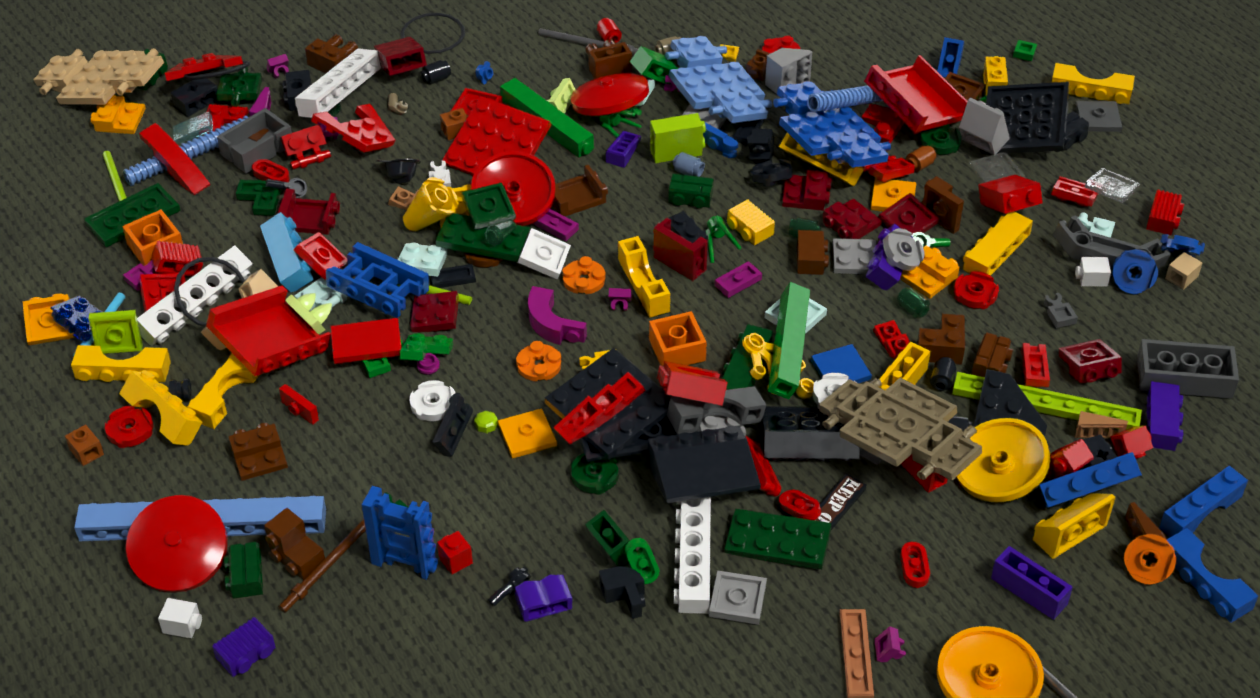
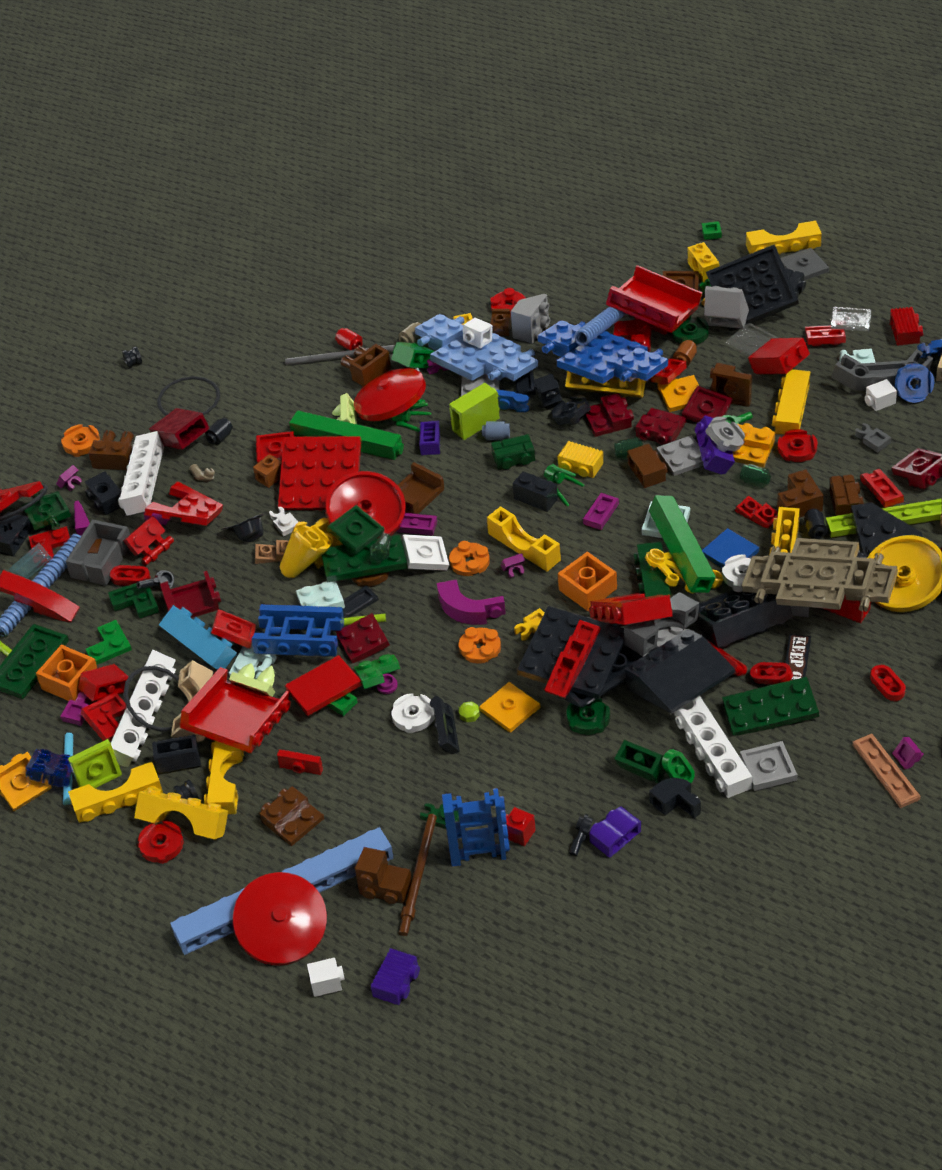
camera: 20 degrees left, 0 degrees up
(84, 445) = (133, 873): dark orange brick -> none
(194, 350) = (176, 753): none -> black brick
(215, 230) = (113, 643): none -> green plate
(244, 570) = (351, 916): dark green brick -> none
(303, 36) = (73, 434): none -> orange plate
(484, 72) = (262, 416): blue plate -> none
(678, 253) = (539, 506): dark red panel -> none
(726, 65) = (477, 332): none -> white brick
(950, 56) = (655, 256): blue slope -> none

